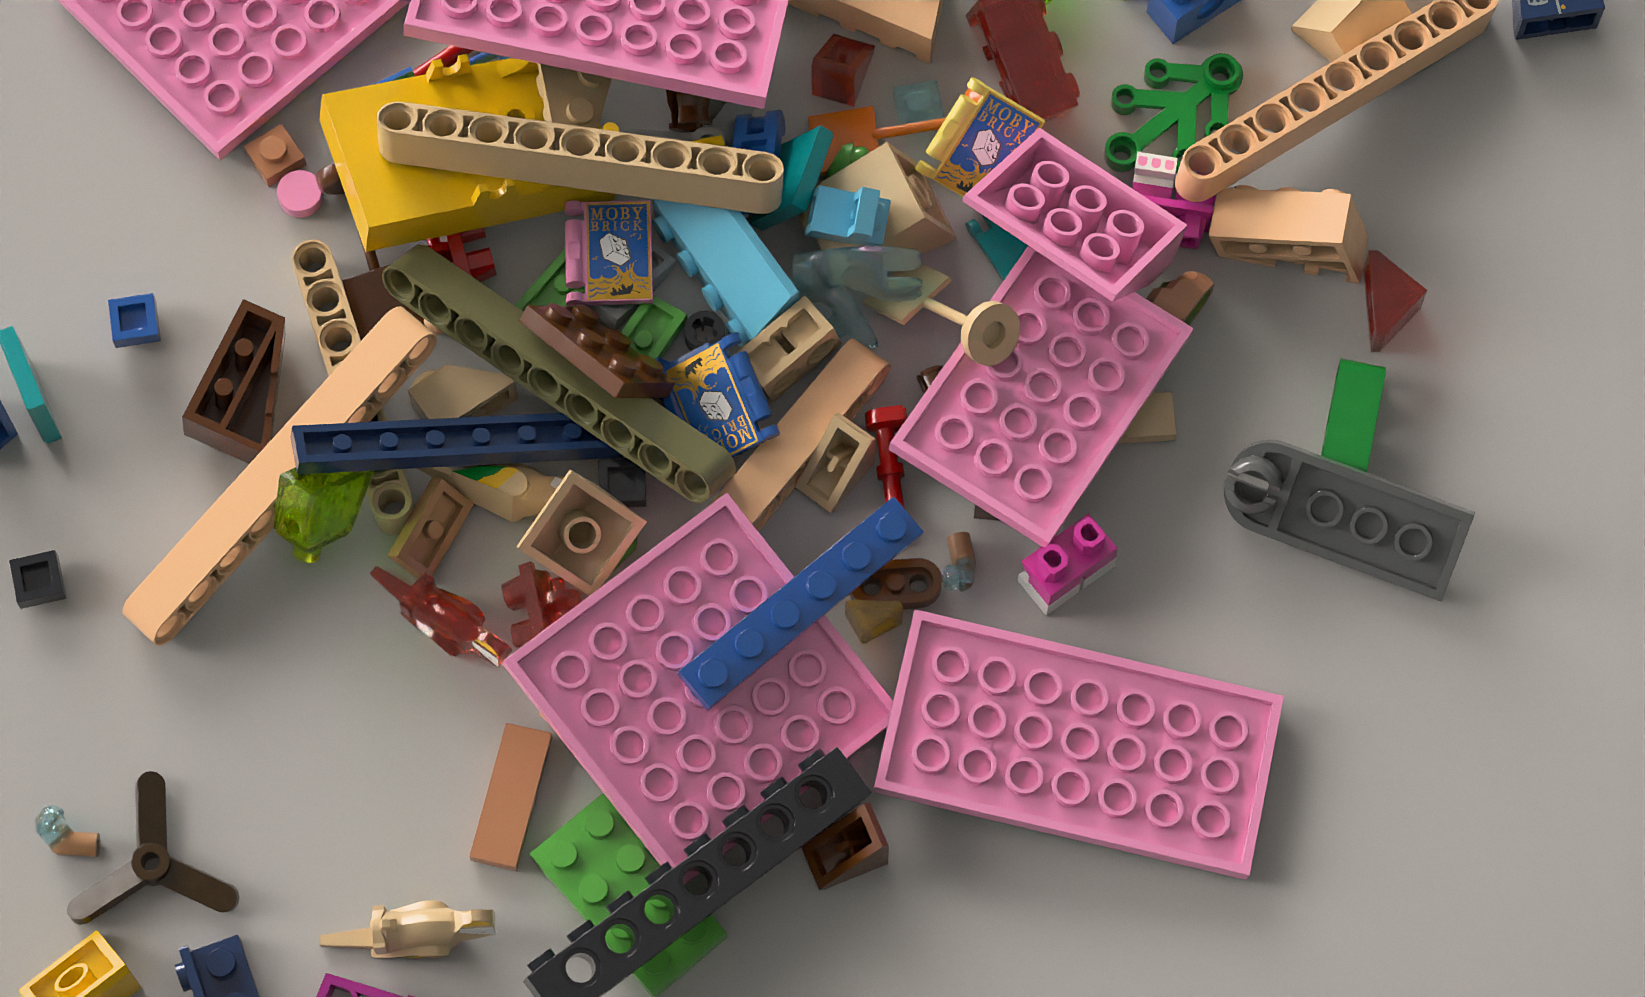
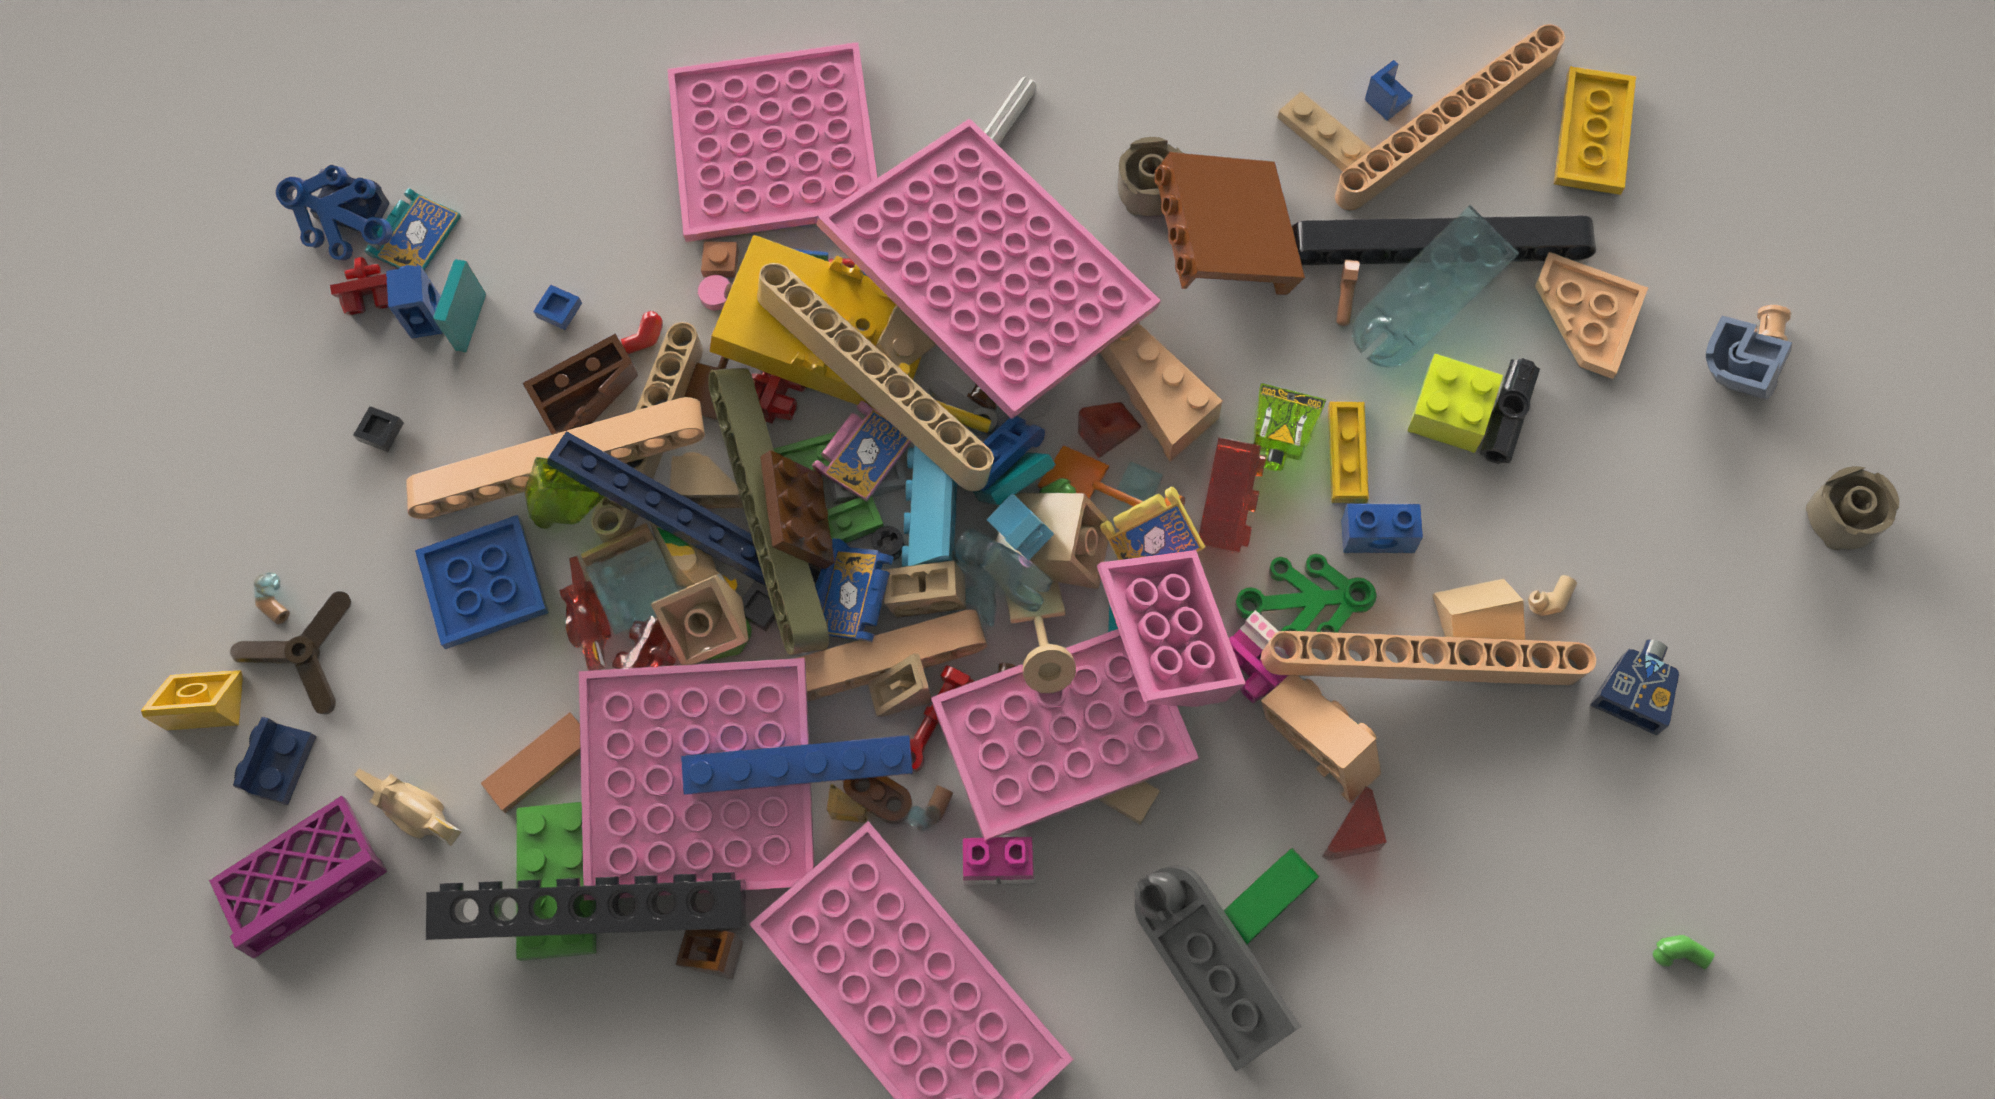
camera: 40 degrees right, 0 degrees up
(259, 279) = (647, 333): none -> red arm
(295, 658) = (481, 582): none -> blue plate
(473, 550) = (631, 583): none -> clear light blue bracket
(1183, 296) = (1212, 731): nougat rock -> none

